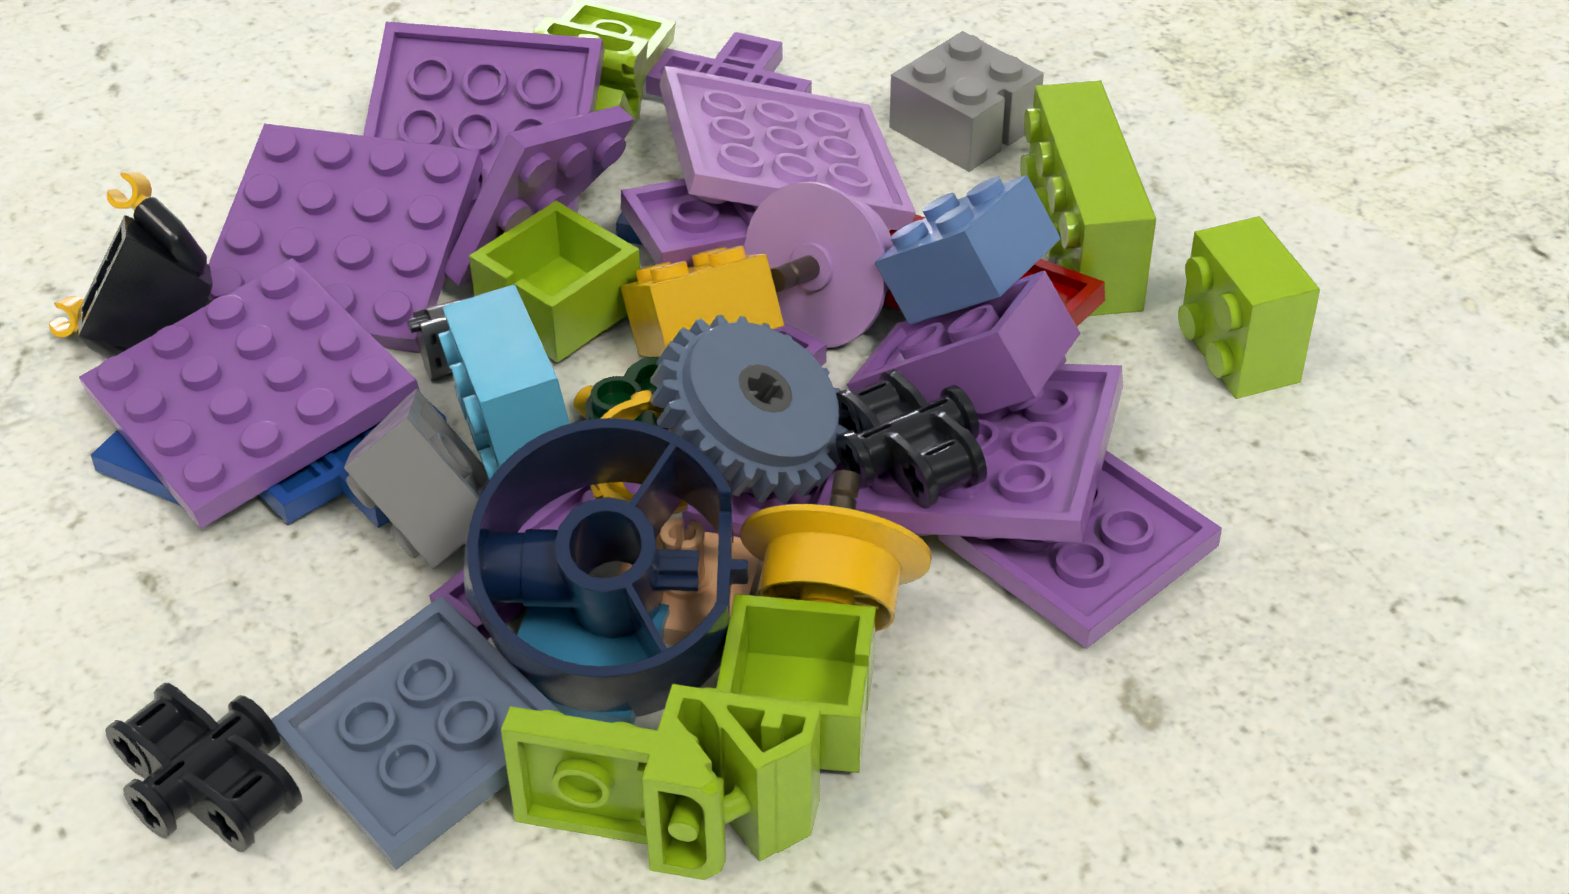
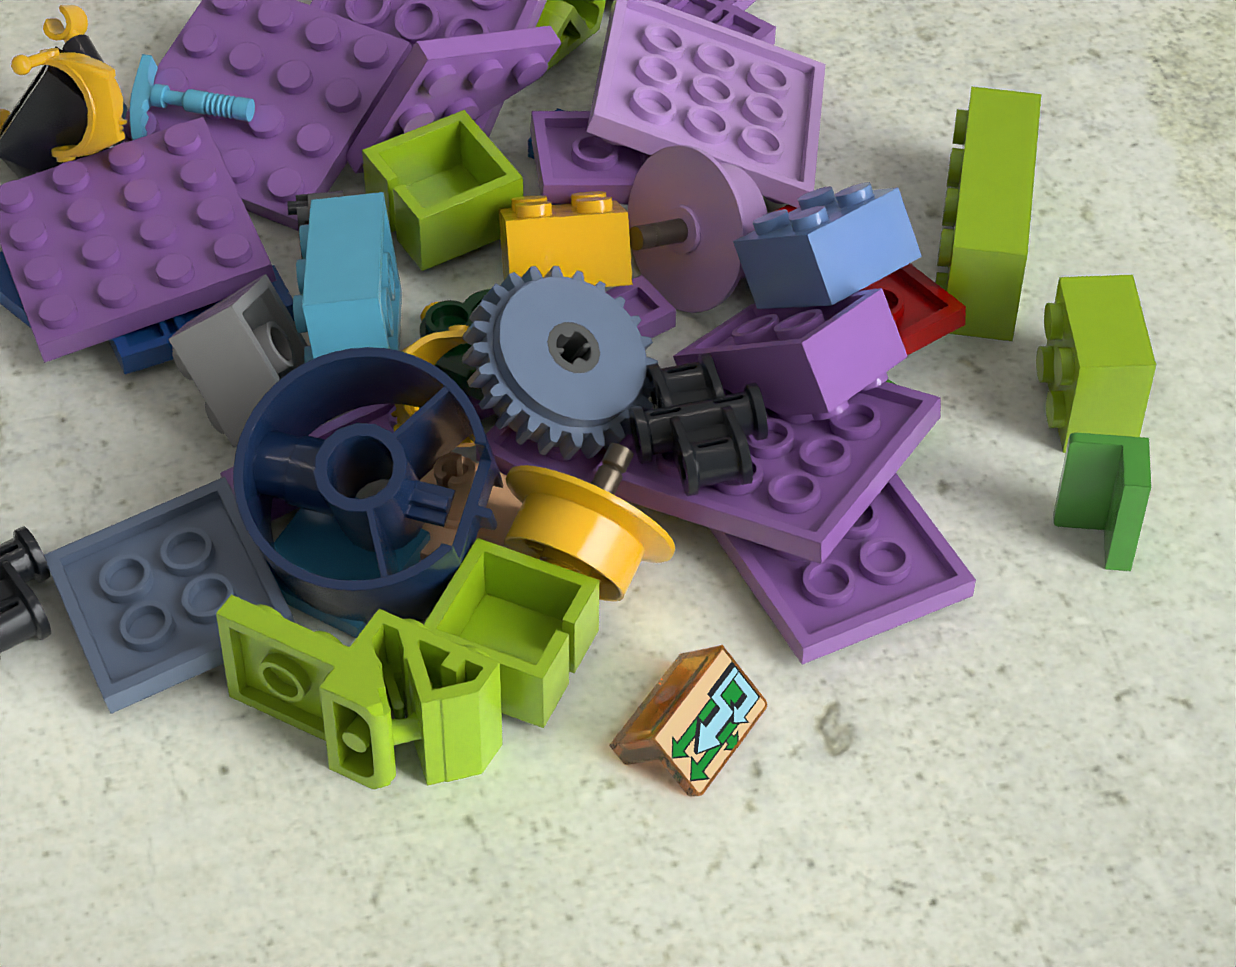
camera: 15 degrees right, 5 degrees up
(190, 250) = (100, 94): none -> yellow helmet
(224, 251) = (146, 94): none -> medium azure piece
(963, 100) = (907, 73): light grey piece -> none
(1004, 725) = (693, 718): none -> panel
(1314, 415) = (1106, 489): none -> bright green panel

